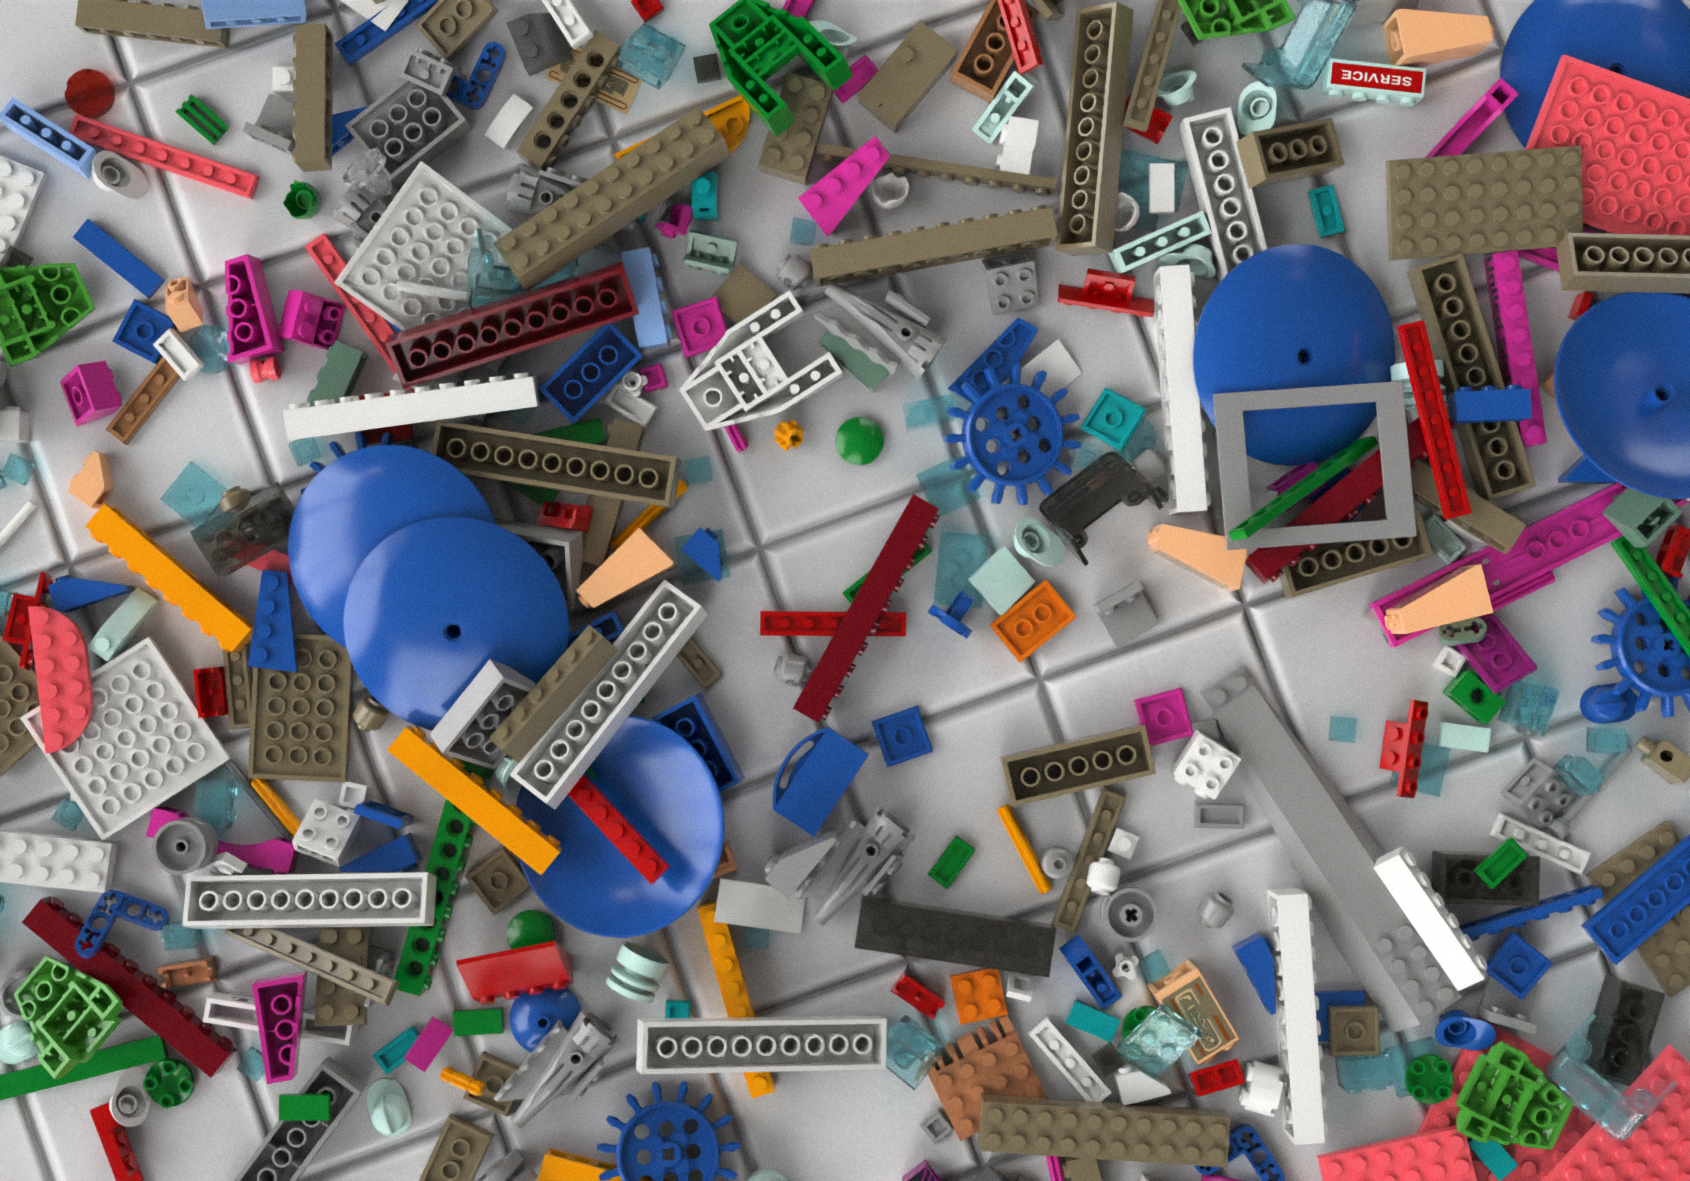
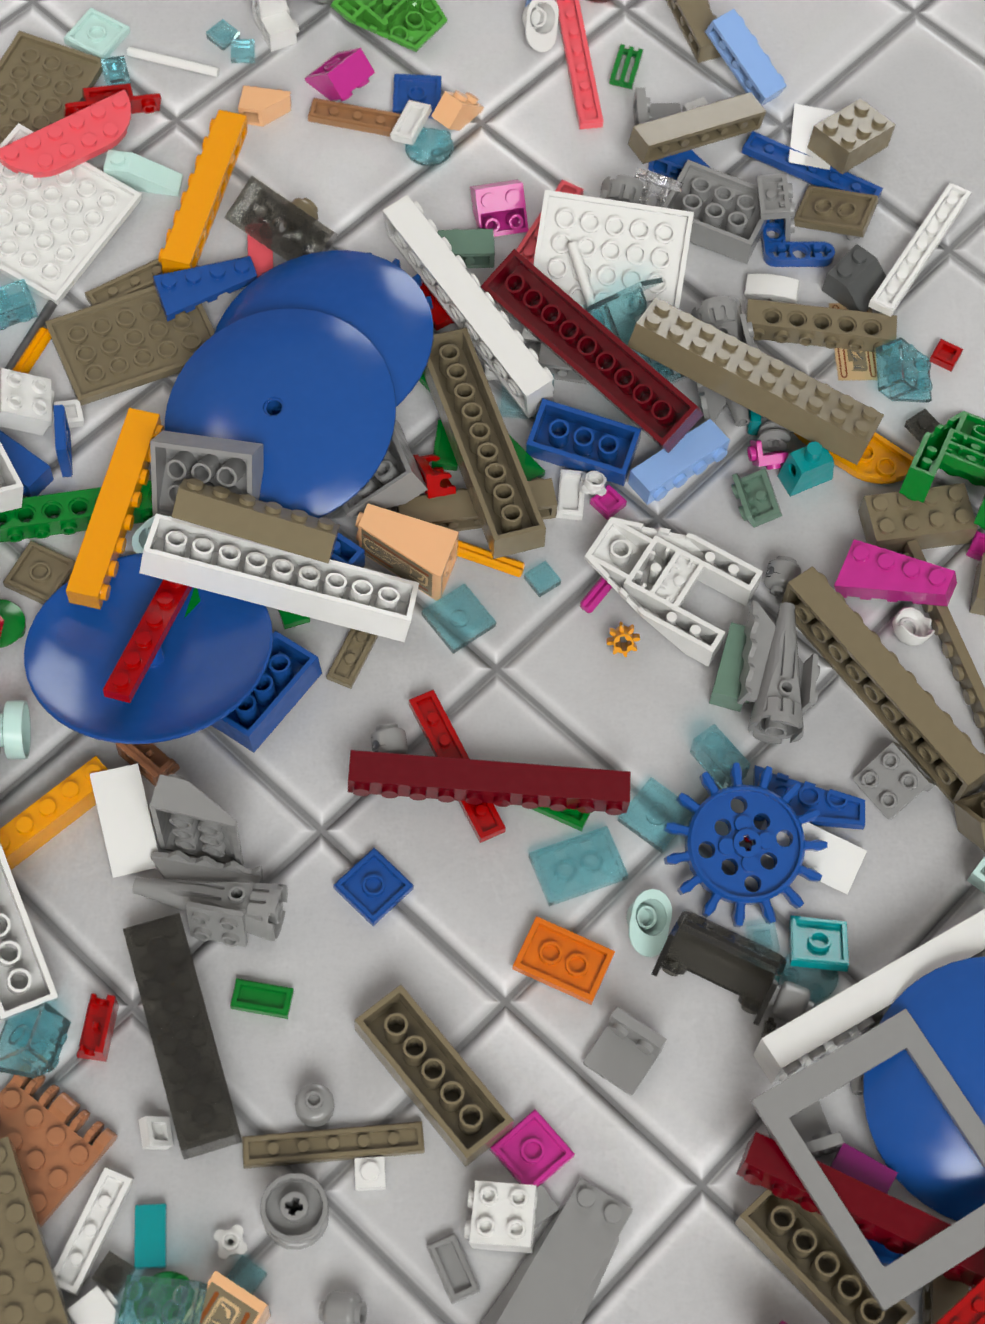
camera: 60 degrees right, 25 degrees down
(76, 593) = (154, 132): blue slope -> none
(119, 258) = (469, 53): blue tile -> none
(194, 495) = (292, 180): clear light blue tile -> none
(211, 692) = (112, 261): red hinge -> none
(250, 312) = (479, 158): dark pink wedge -> none
(265, 369) = (437, 193): coral wheel -> none
(302, 200) = (601, 162): green hair -> none
(304, 450) = (380, 248): clear light blue tile -> none
(370, 714) = (154, 395): dark tan head -> none
(700, 326) = (682, 515): dark pink tile -> none
(705, 552) = (465, 611): blue slope -> none
(743, 295) = (734, 537): dark tan tile -> none
(756, 937) = (90, 836): clear light blue tile -> none
(803, 232) = (826, 566): clear light blue tile -> none
(817, 779) = (287, 816): blue piece -> none
(859, 441) = (654, 710): green dish -> none
(955, 613) = (528, 871): blue tile -> none
(978, 995) = (125, 1095): orange plate -> none
(1001, 580) = (589, 907): light aqua tile -> none
(1024, 849) = (312, 1067): light orange axle -> none
(1090, 972) = (205, 1204): blue slope -> none
(1103, 877) = (322, 1161): white head -> none
(1107, 292) = (943, 874): red bracket -> none
(1200, 554) = (728, 1093): light nougat slope -> none
(1302, 488) = (857, 1153): green tile -> none

